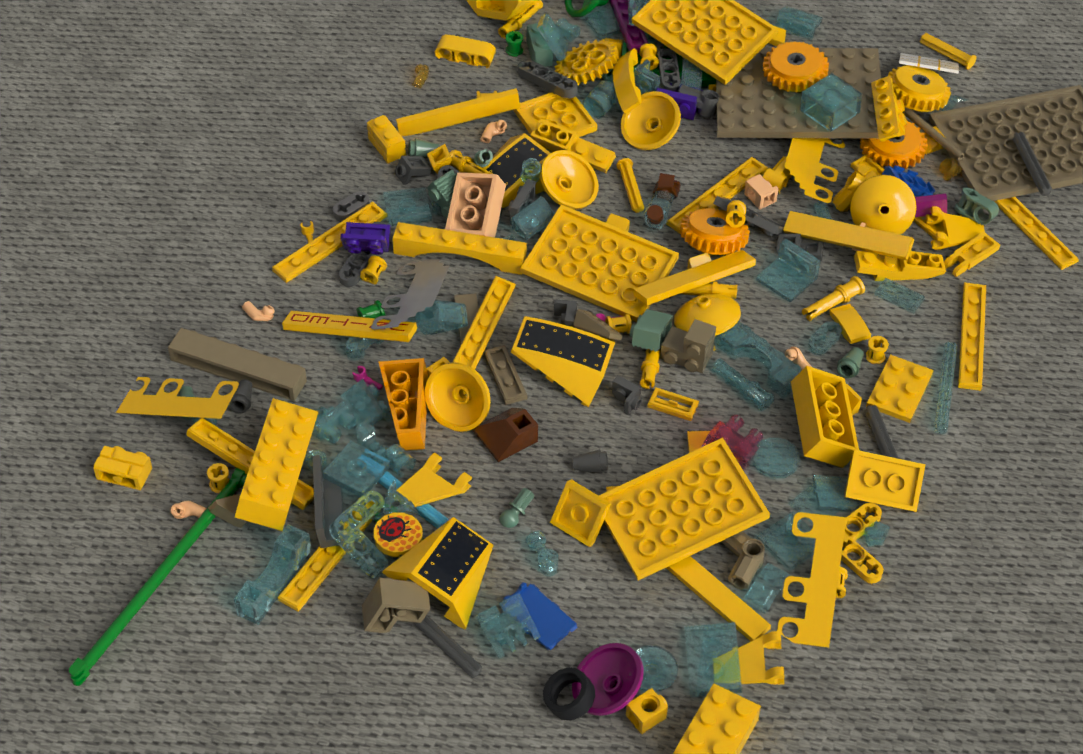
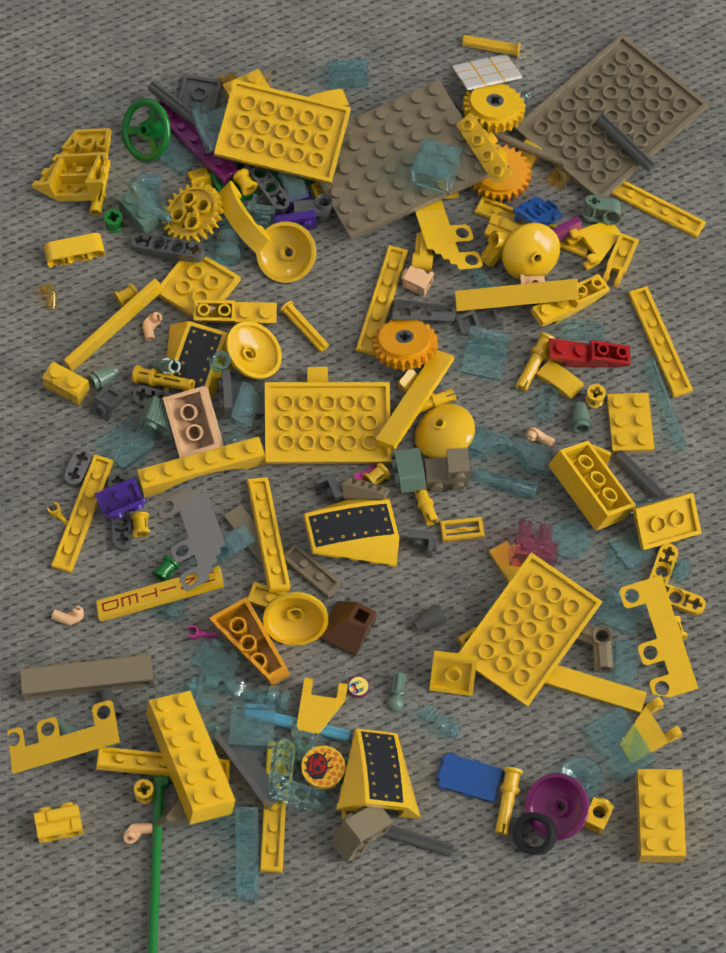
camera: 30 degrees left, 15 degrees up
(439, 157) = (126, 381): yellow slope -> none
(482, 488) = (358, 687): none -> tile
(514, 617) = (445, 805): clear light blue legs -> none
(569, 645) = (509, 791): none -> yellow pin
(660, 204) = (340, 333): piece -> none
(740, 216) = (420, 321): yellow bush -> none
(795, 66) = (384, 138): light orange gear -> none
(896, 317) = (594, 354): none -> red slope

